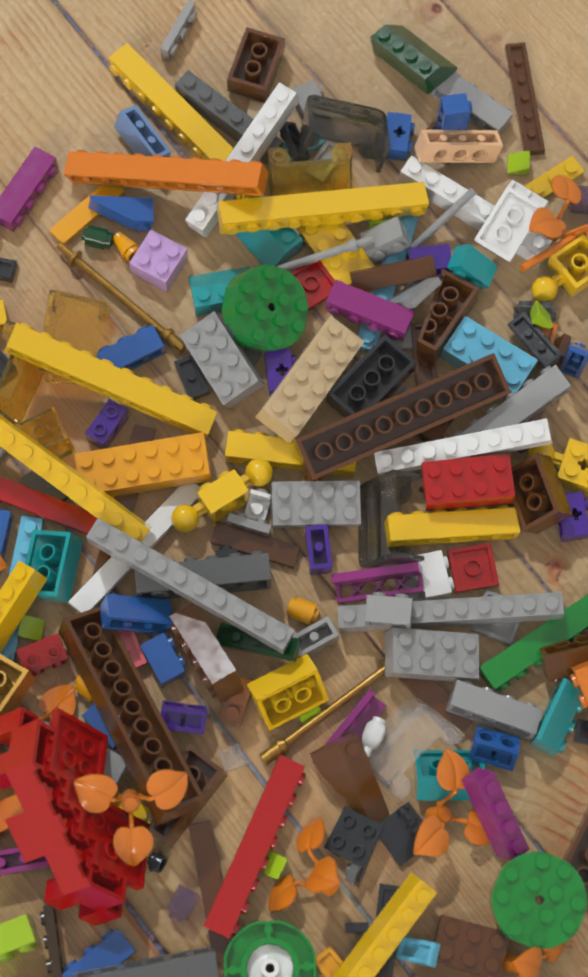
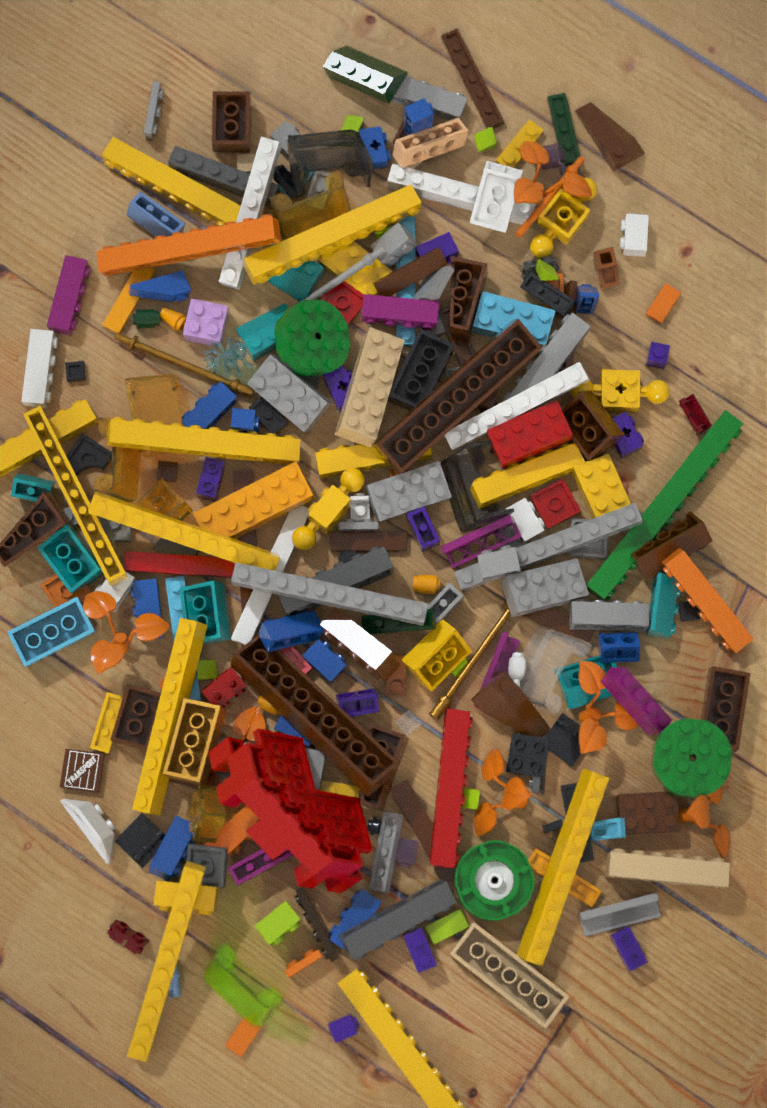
camera: 15 degrees left, 5 degrees up
(64, 402) = (167, 471): none -> reddish brown plate
(131, 843) = (354, 816): orange plant -> none
(159, 895) = (386, 852): none -> light grey plate
(164, 373) = (245, 420): none -> blue brick
(169, 303) = (229, 357): none -> clear light blue animal
(384, 104) = (353, 123): none -> lime slope
(444, 218) = (437, 211): light grey bar -> none
(472, 266) = (474, 246): teal brick -> none
(528, 562) = (600, 486): none -> yellow brick

